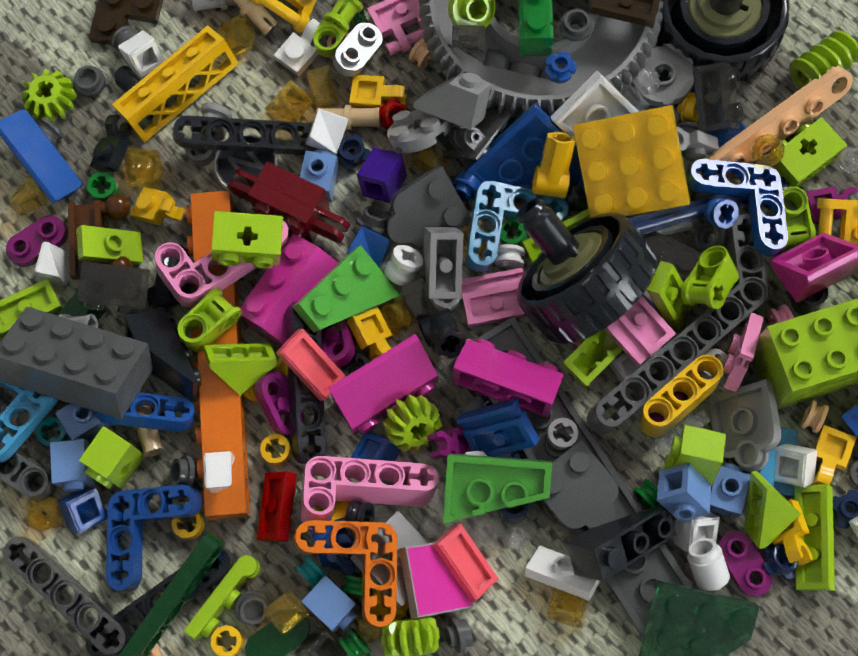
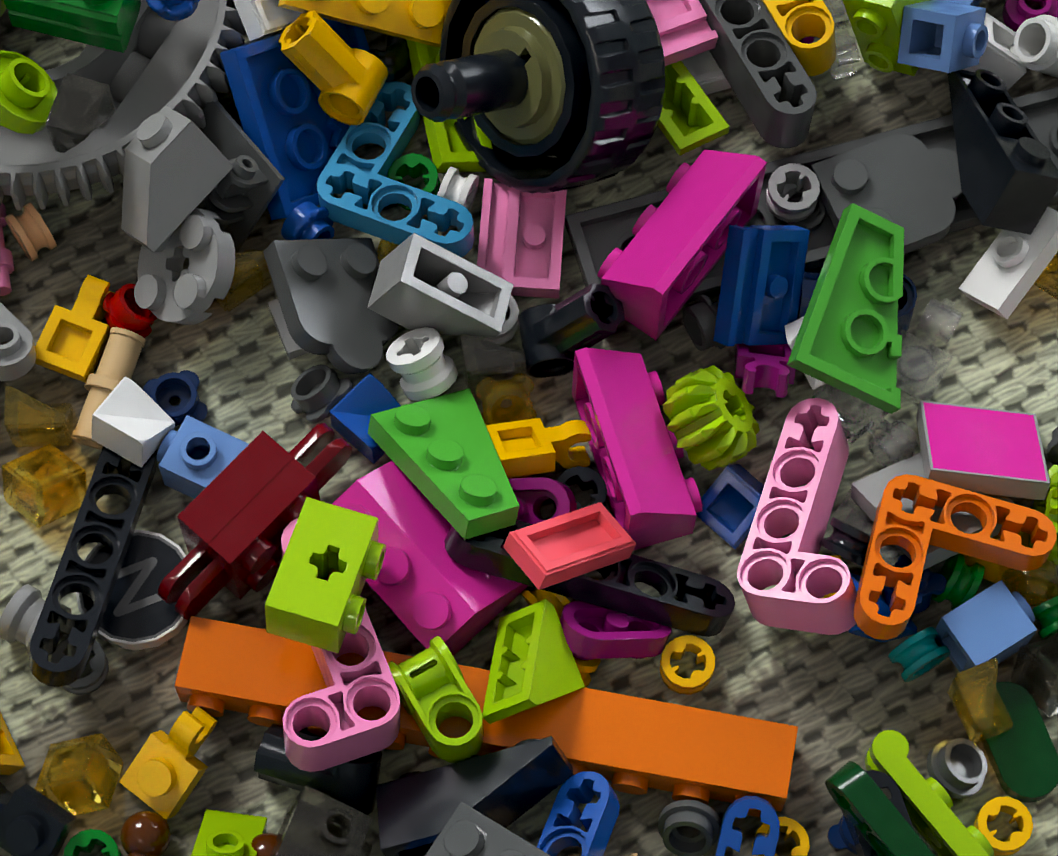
camera: 80 degrees left, 5 degrees down
(218, 470) = (724, 741): white slope -> none
(276, 506) = (792, 683): red plate -> none
(381, 174) = (244, 353): dark purple brick -> none
(465, 562) = (964, 400): coral tile -> none
(647, 494) = (921, 101): green bush -> none

